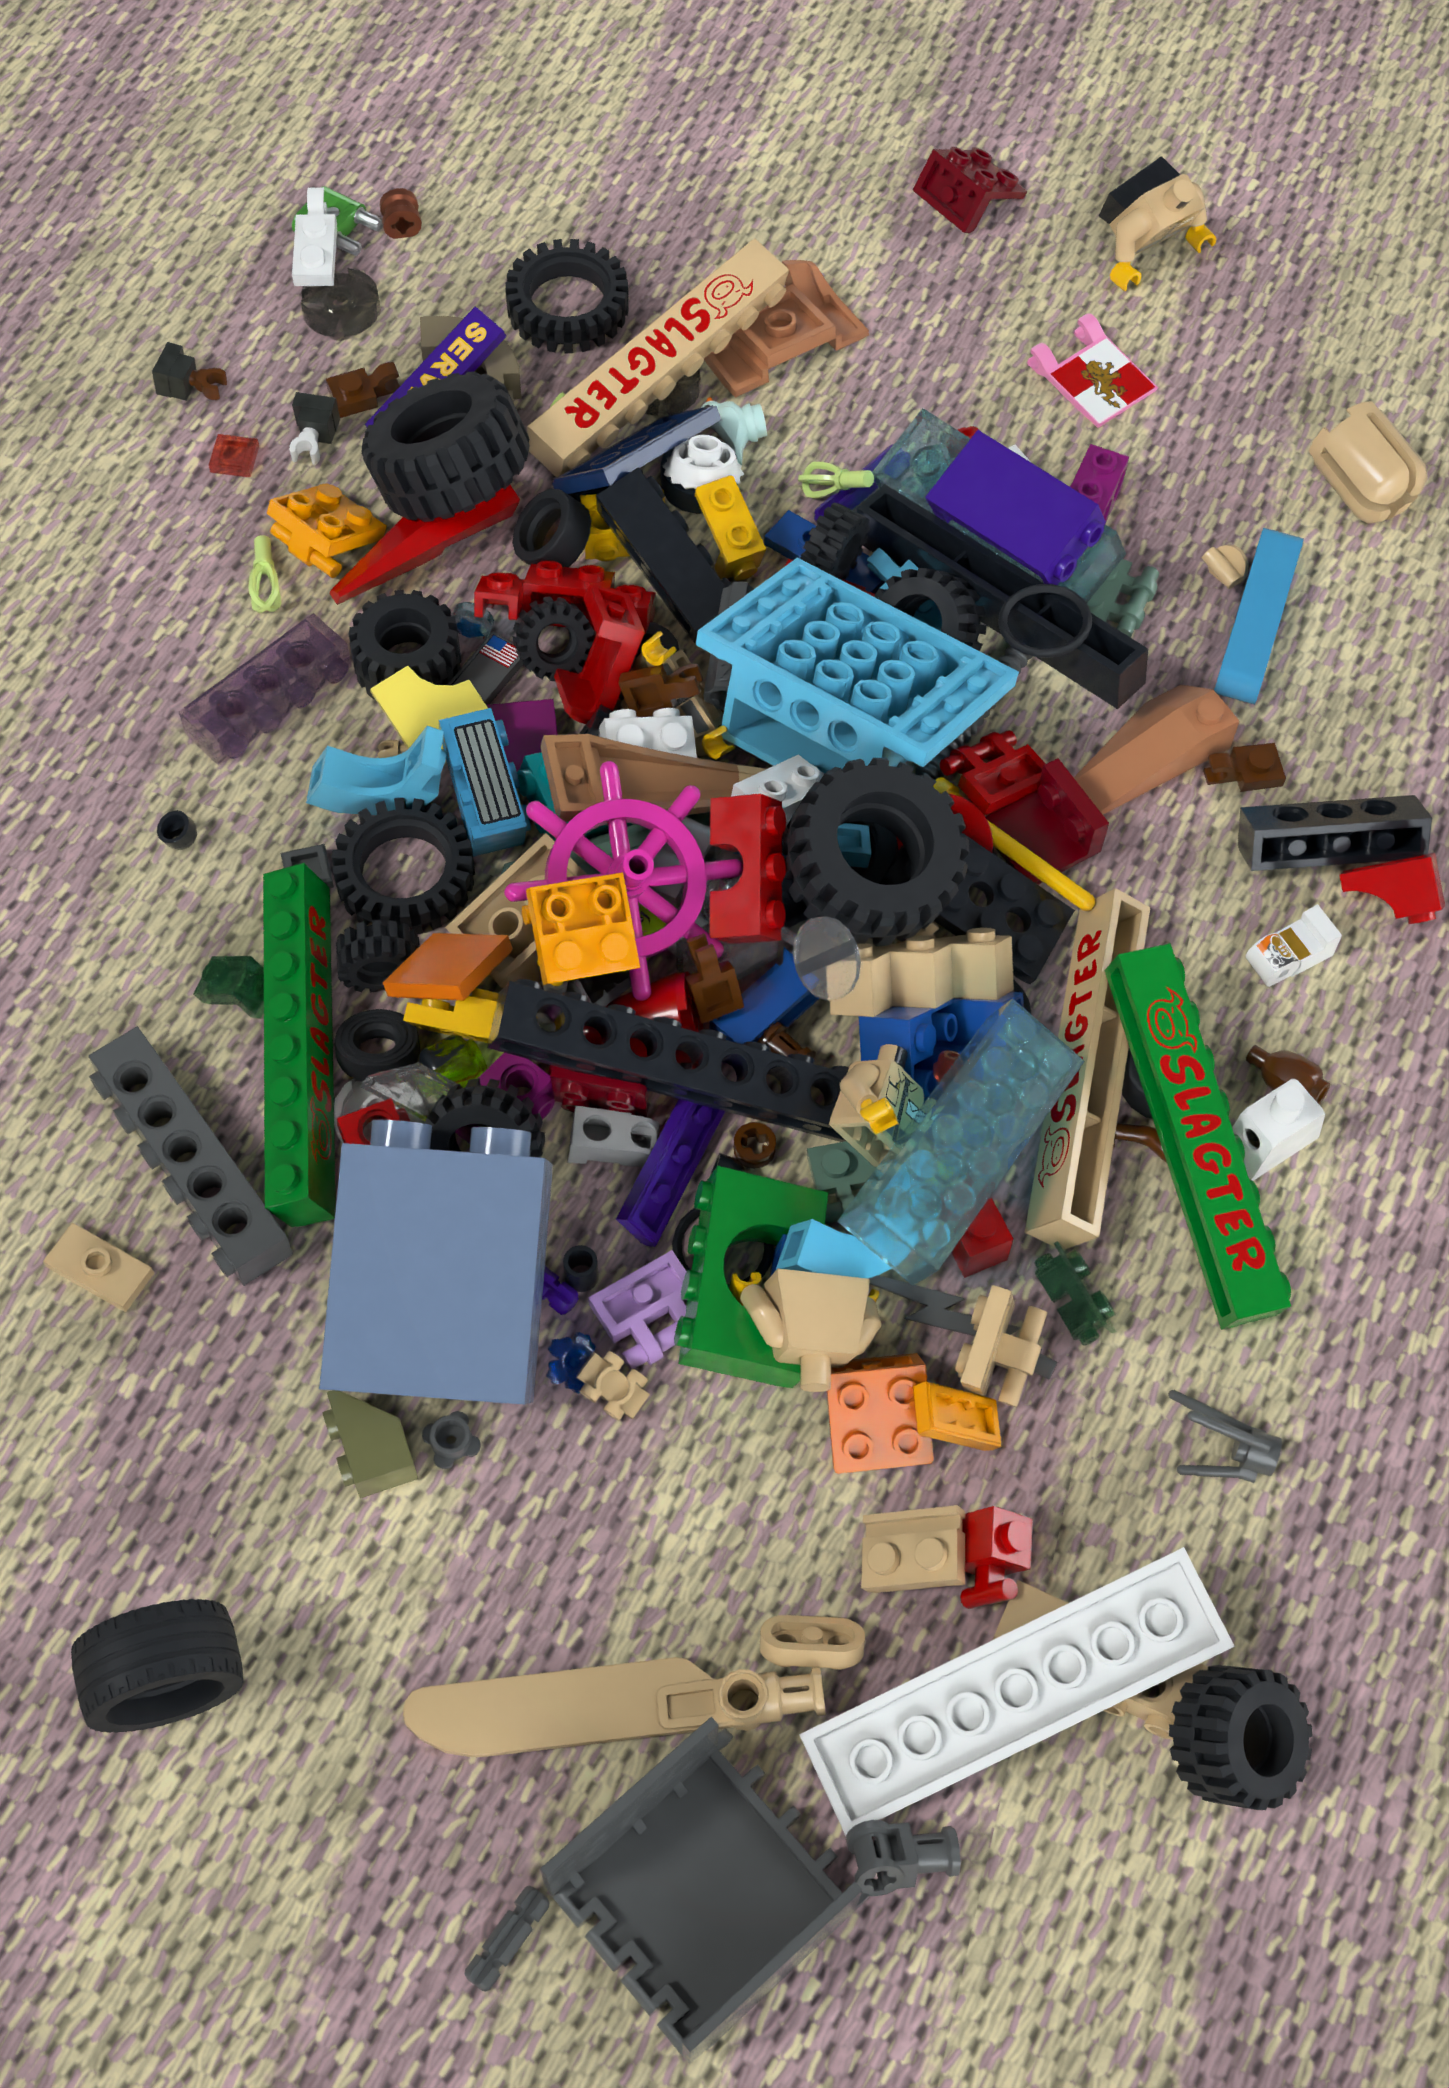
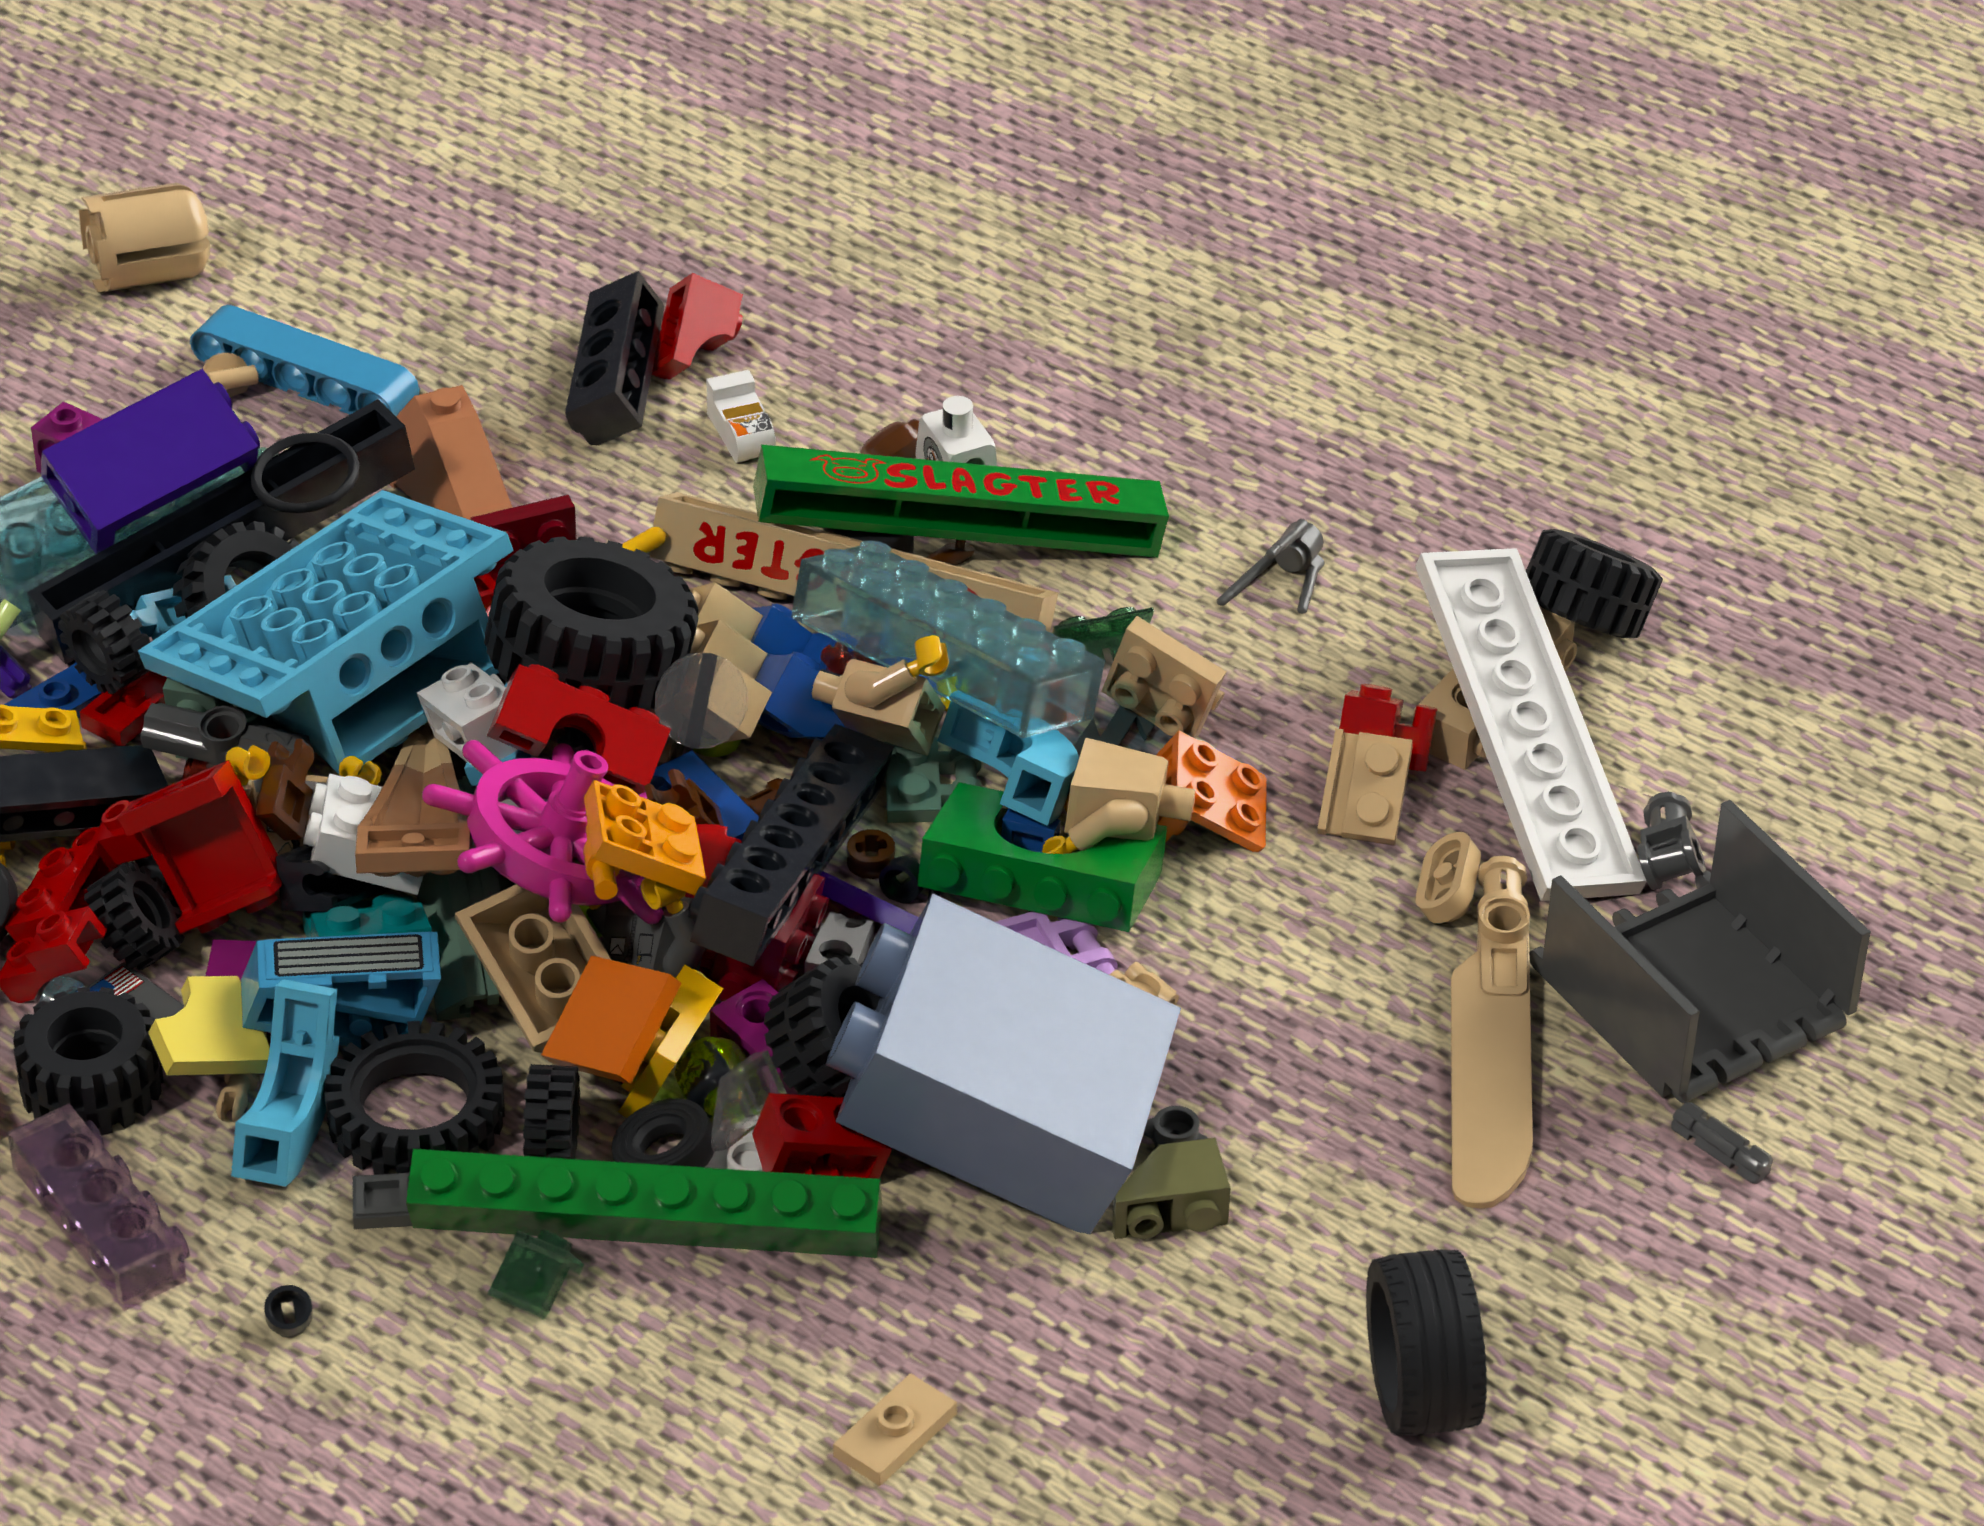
camera: 80 degrees left, 20 degrees down
(134, 1061) = (768, 1324): dark grey brick -> none
(957, 1416) = (1230, 733): light orange plate -> none
(1250, 765) = (501, 411): reddish brown plate -> none

